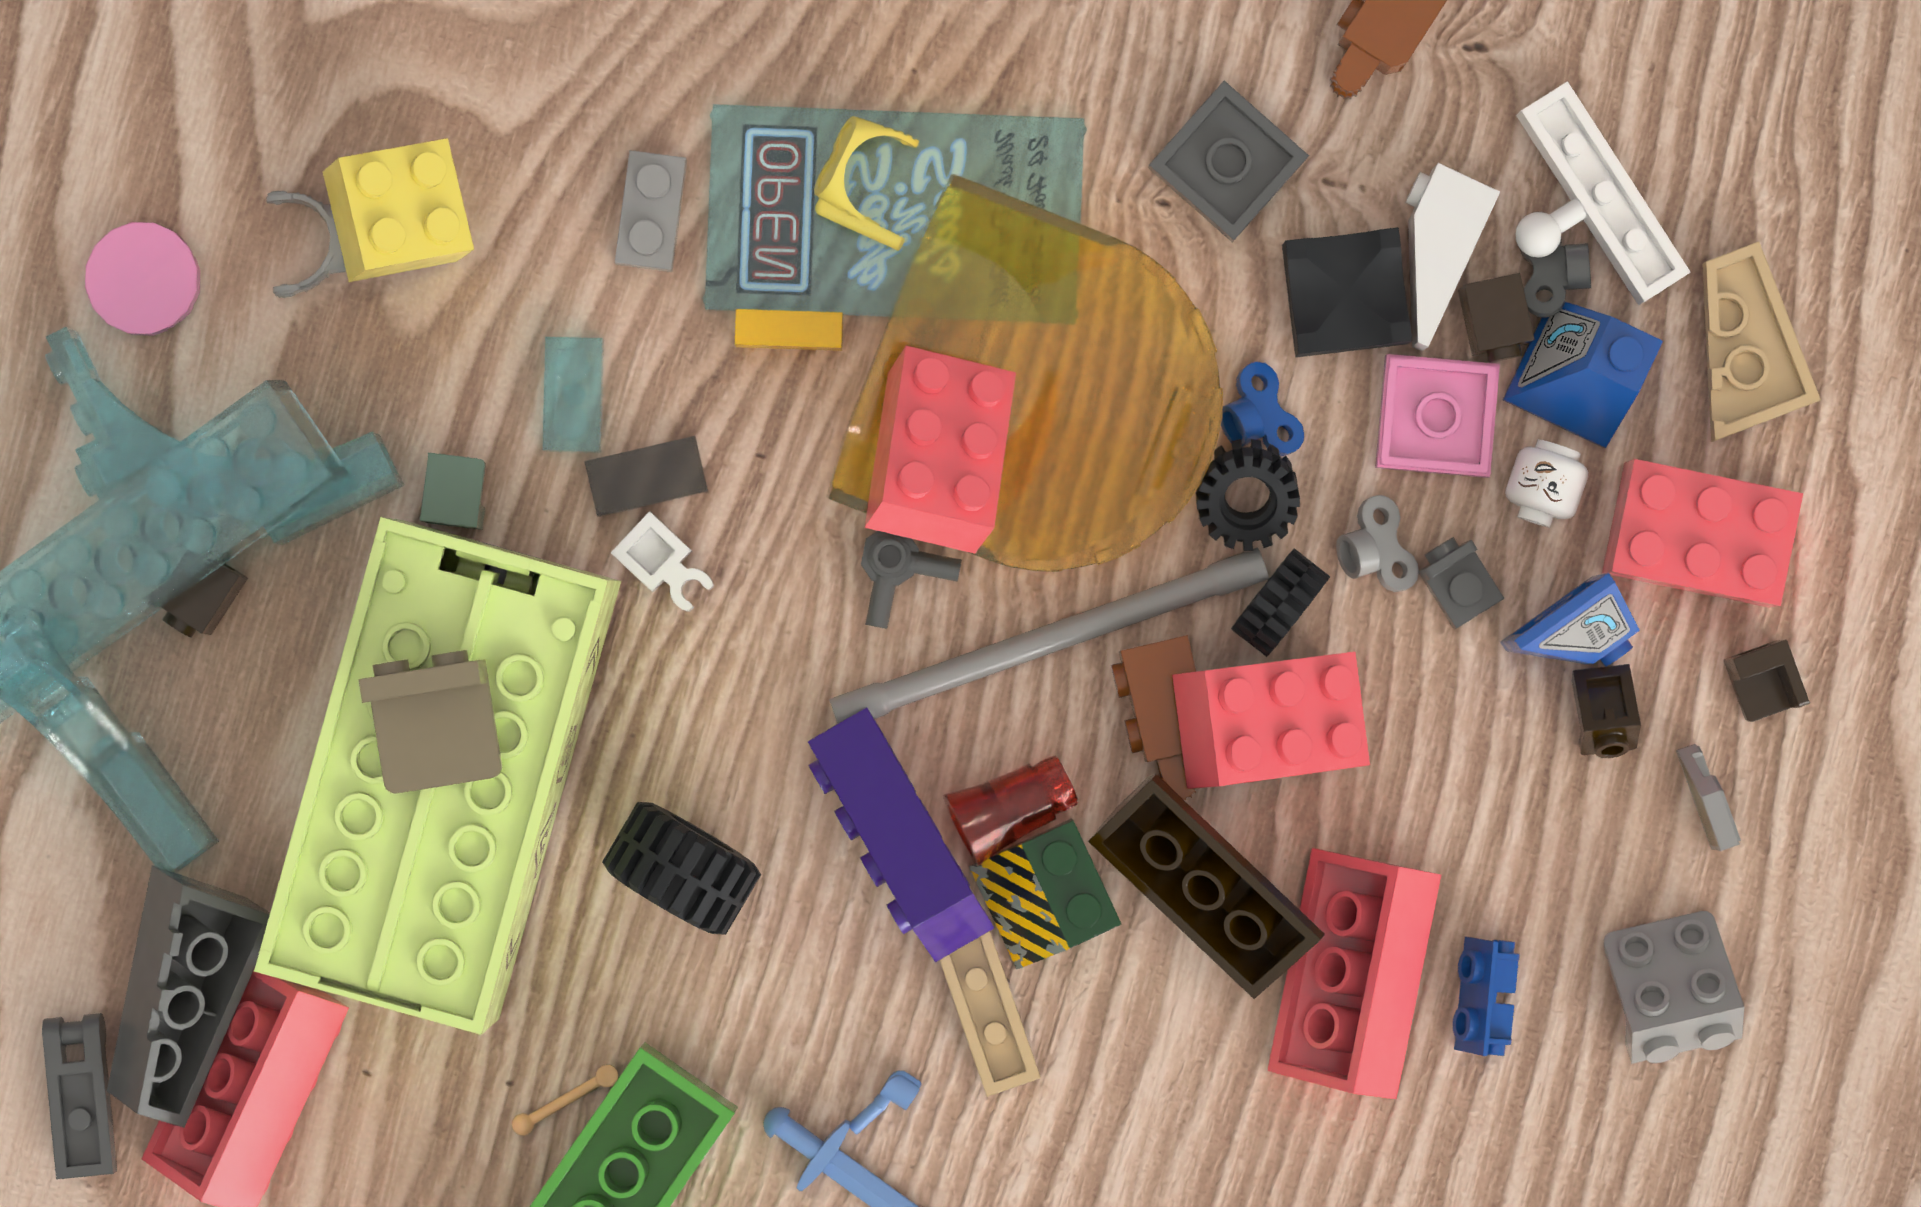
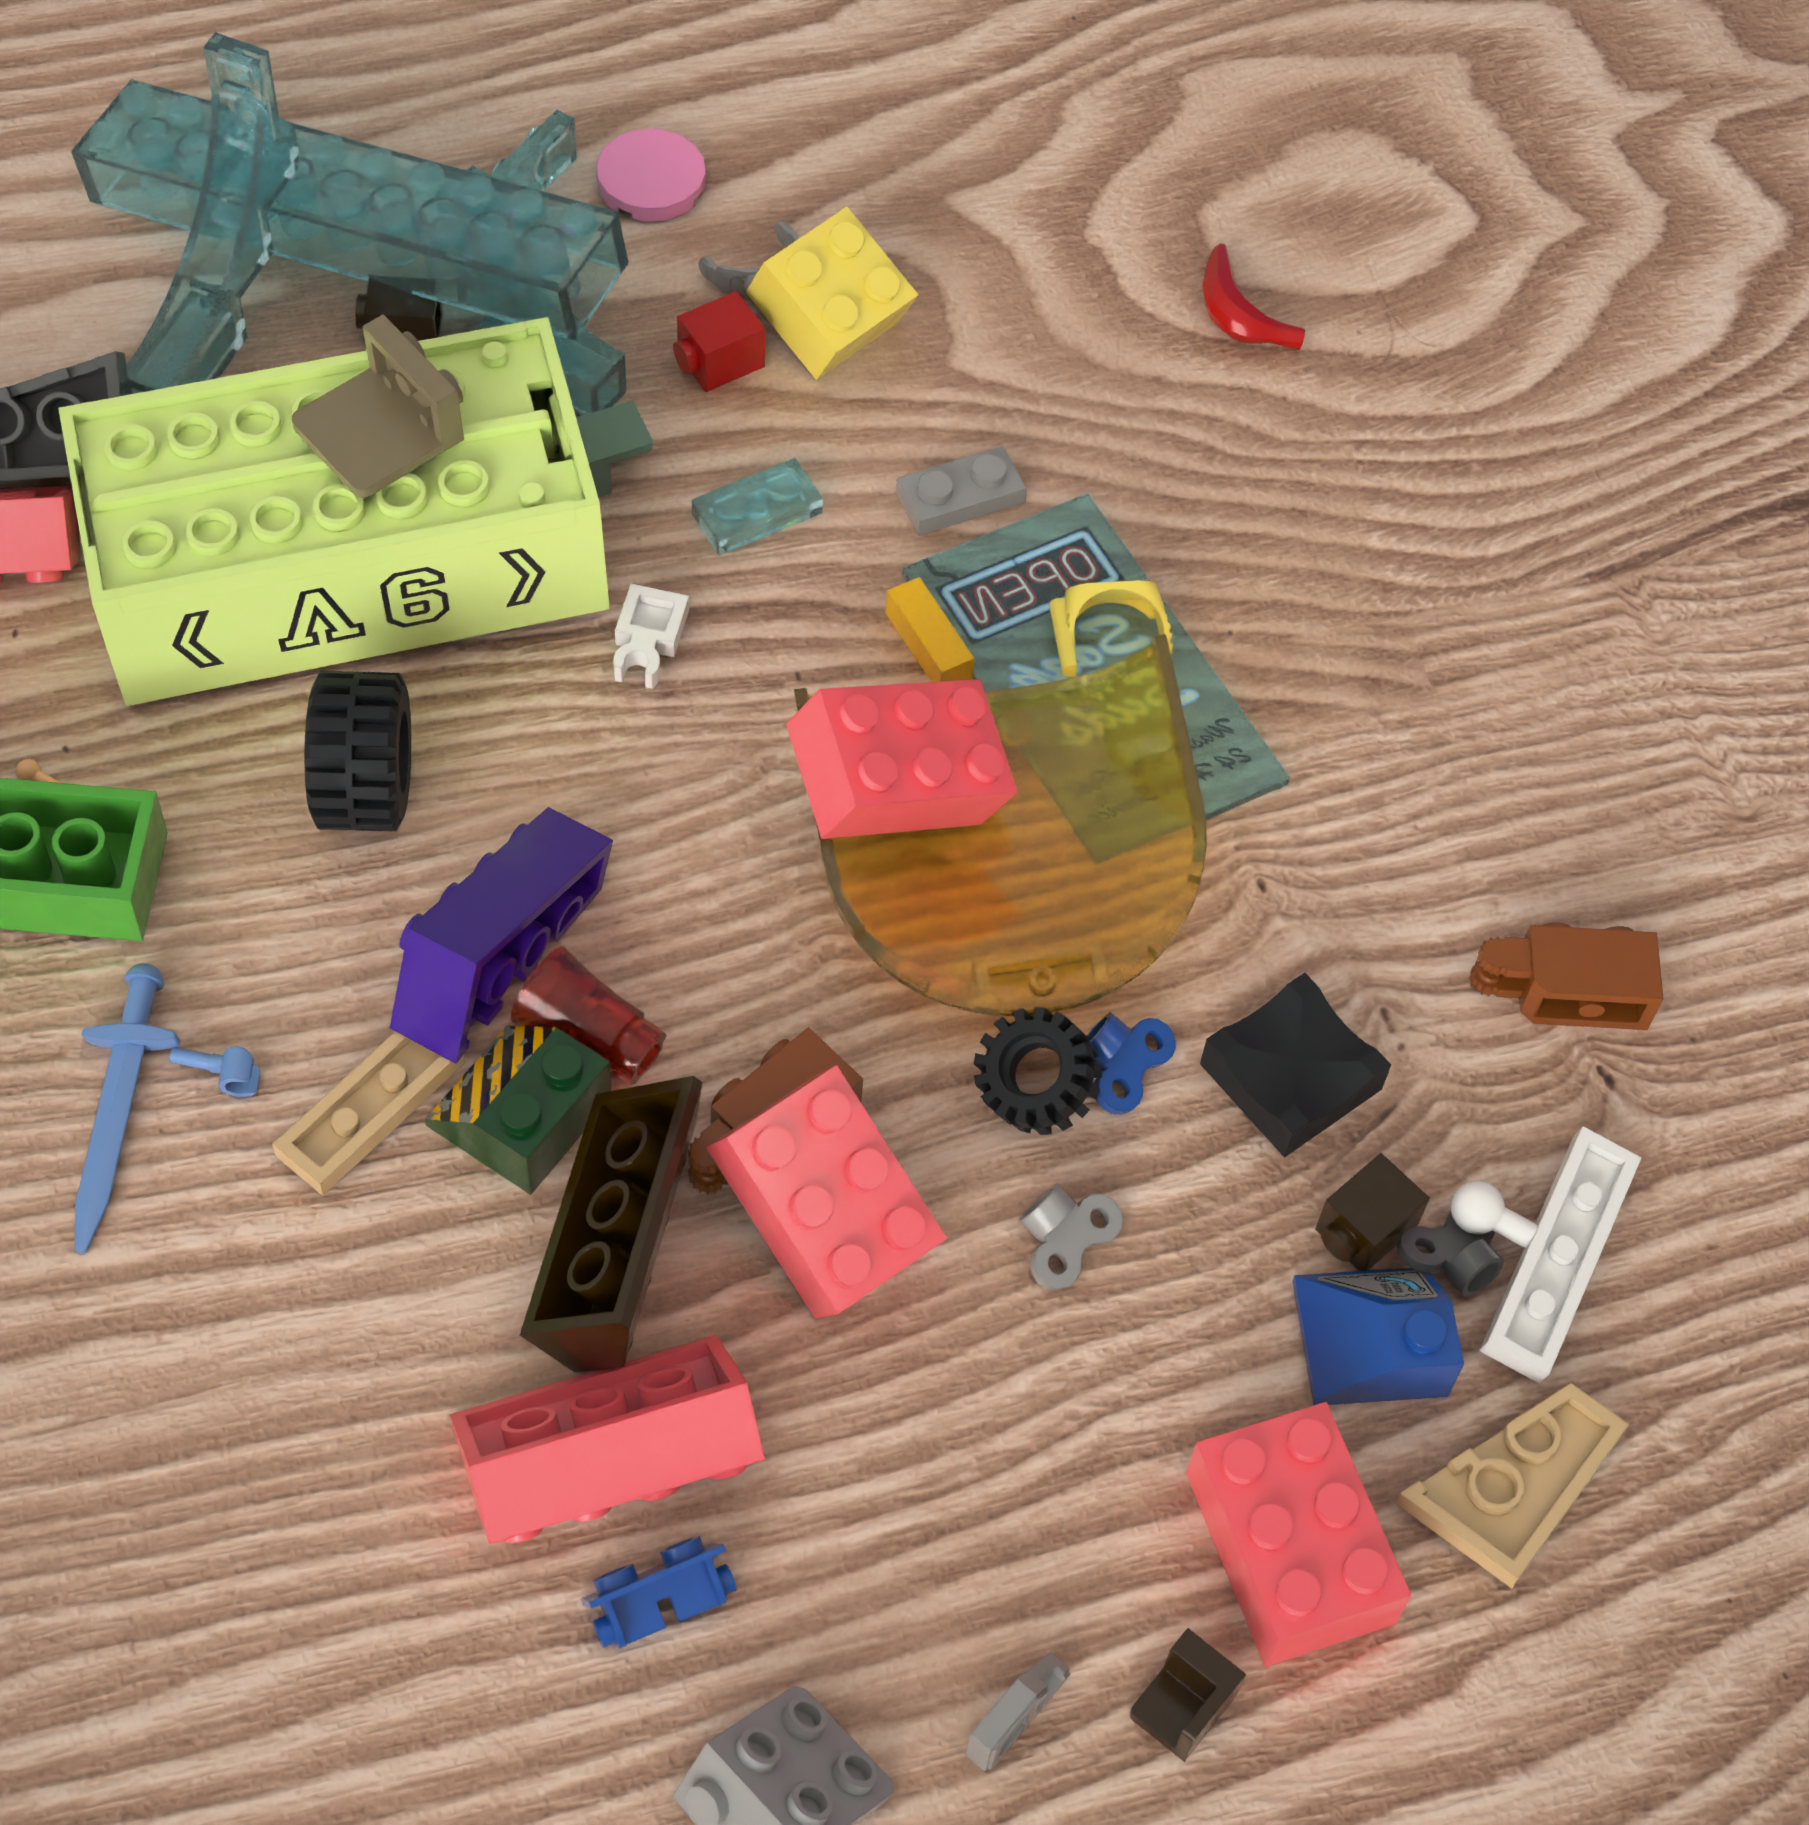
camera: 60 degrees right, 30 degrees down
(385, 332) = (720, 341): none -> red brick
(646, 476) = (720, 593): clear smoke tile -> none
(893, 560) = (768, 811): dark grey piece -> none
(1216, 579) = (935, 1100): light grey piece -> none
(1228, 161) = (1340, 907): dark grey plate -> none
(1280, 602) = (953, 1148): black tyre -> none
(1437, 415) = (1234, 1222): bright pink tile -> none
(1442, 236) = (1418, 1123): white slope -> none
(1459, 581) = (1085, 1325): dark grey bracket -> none
(1546, 483) = (1241, 1350): white head -> none
(1579, 627) = (1113, 1444): blue slope -> none
(1606, 710) = (1043, 1544): dark brown bracket -> none

